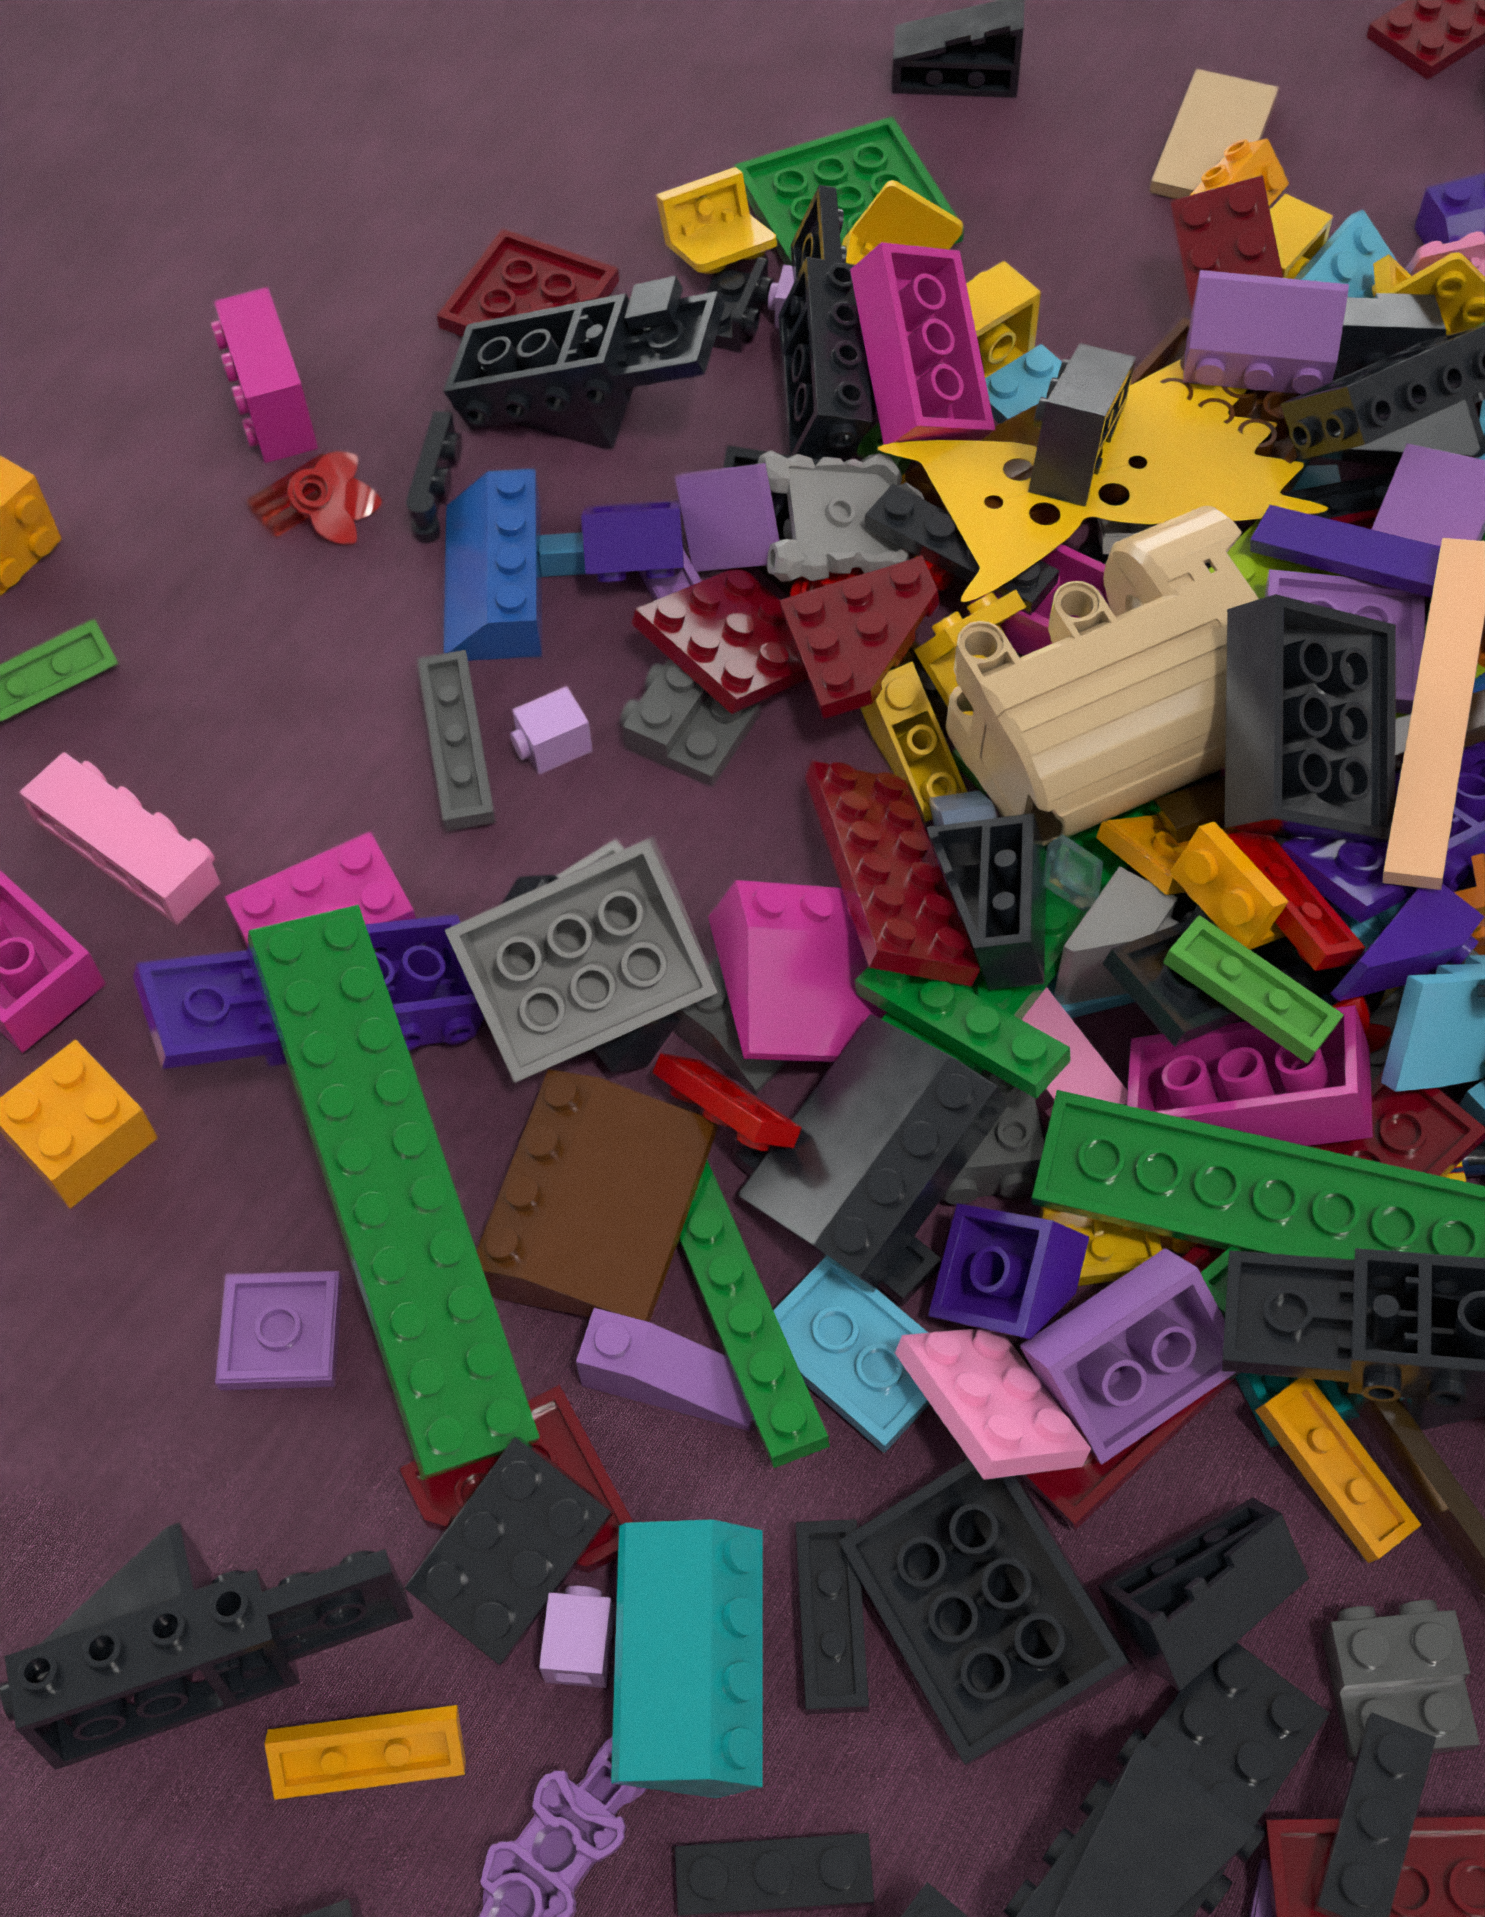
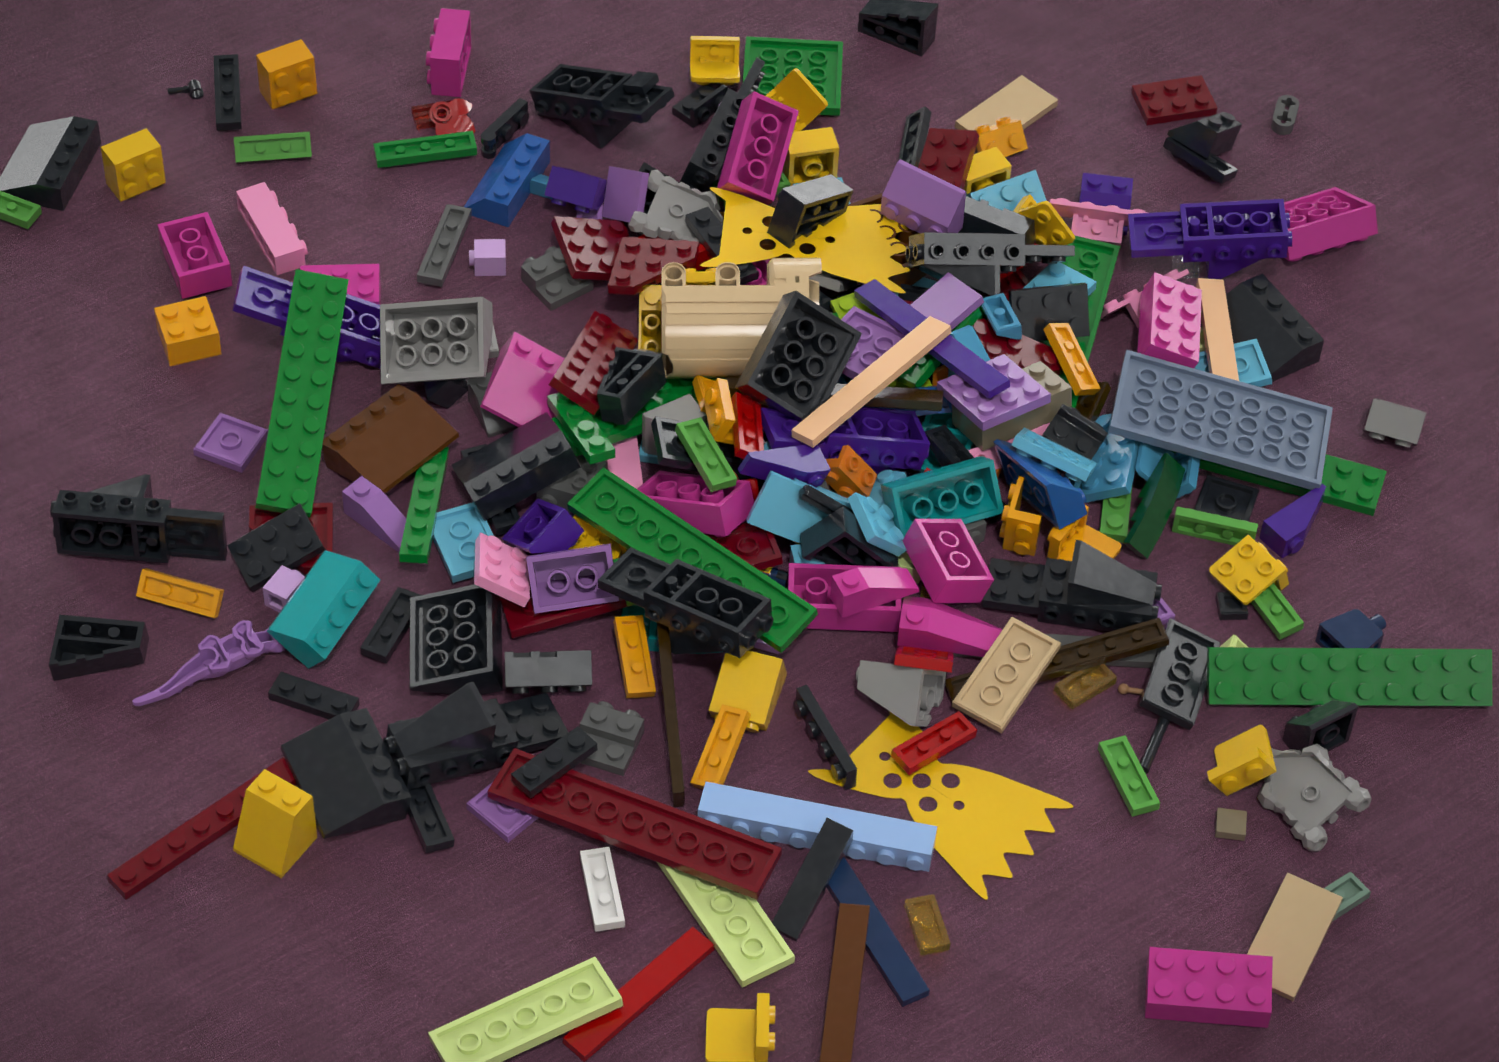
camera: 20 degrees right, 10 degrees down
(315, 569) = (425, 149): none -> green plate
(524, 277) = (606, 52): dark red plate -> none
(726, 1102) = (466, 426): red plate -> none
(1072, 872) = (669, 388): clear light blue plate -> none
(1121, 251) = (915, 136): none -> black plate

